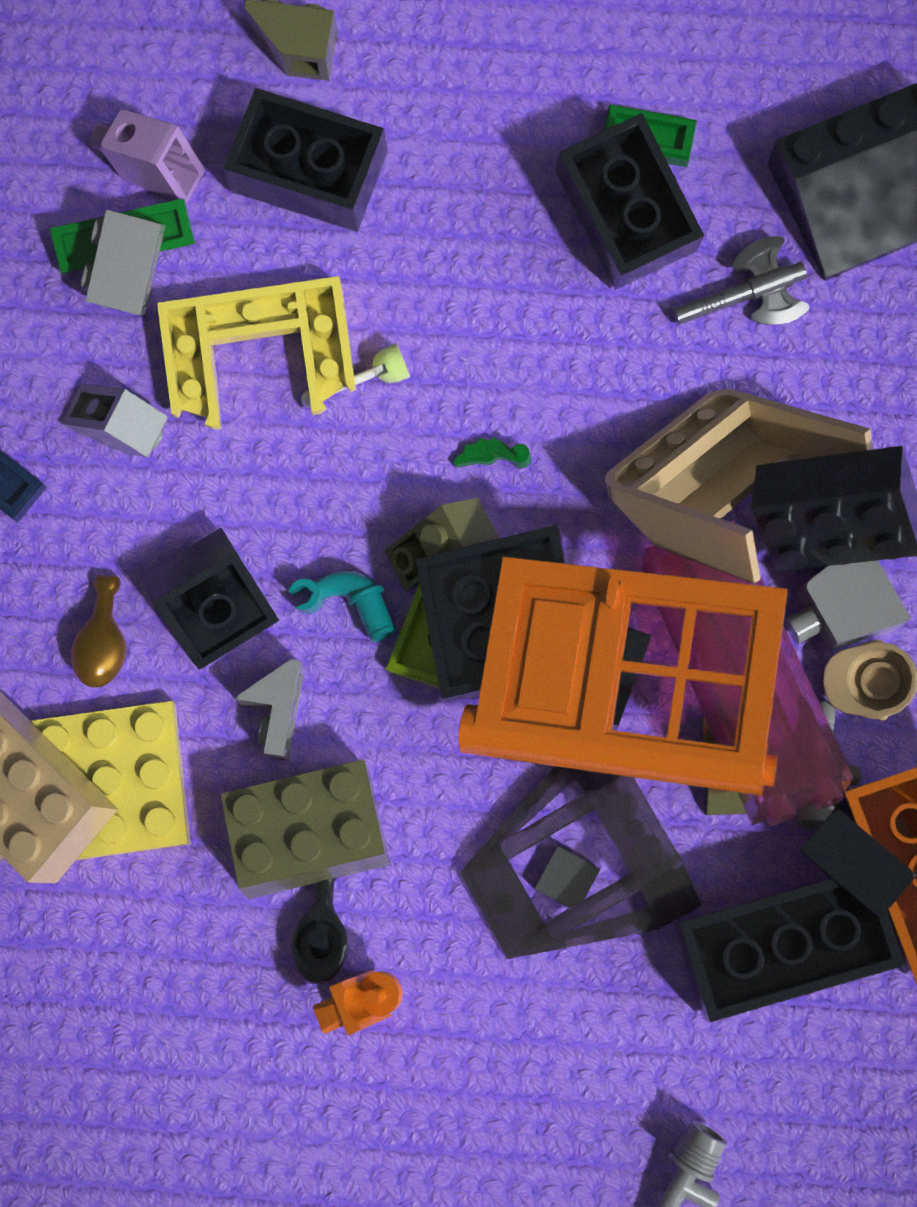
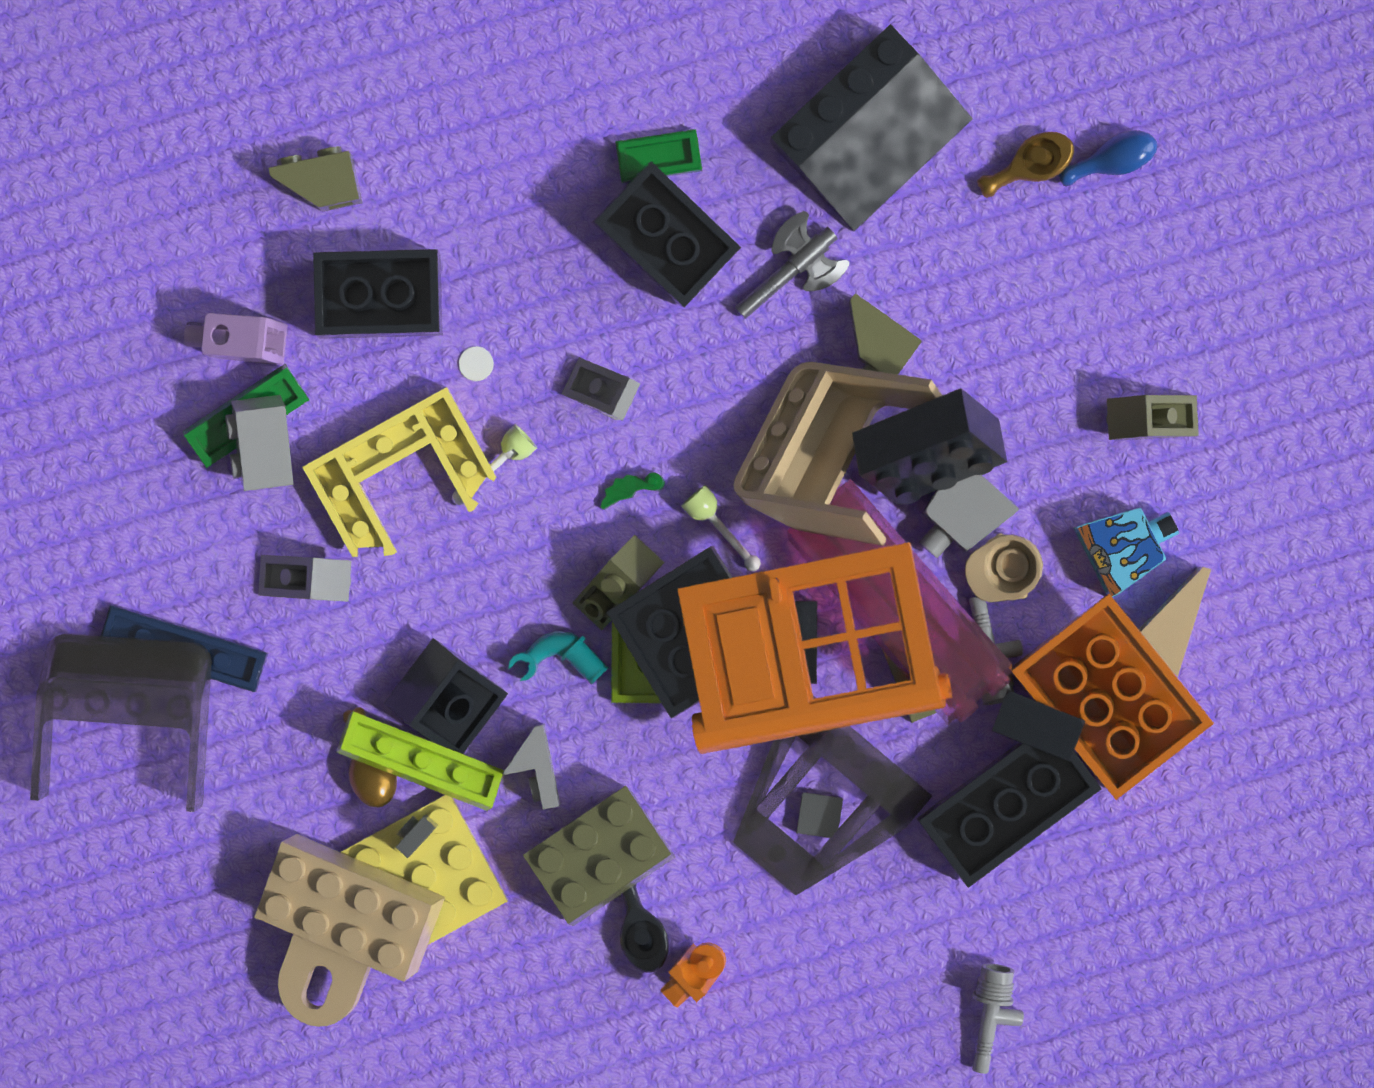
camera: 25 degrees left, 10 degrees up
(113, 727) = (414, 834): none -> dark grey plate
(152, 651) = (420, 761): none -> lime plate
(381, 274) = (476, 363): none -> white sticker
(502, 340) = (601, 389): none -> light grey slope
(561, 498) = (703, 506): none -> hinge
(818, 383) = (879, 339): none -> olive slope

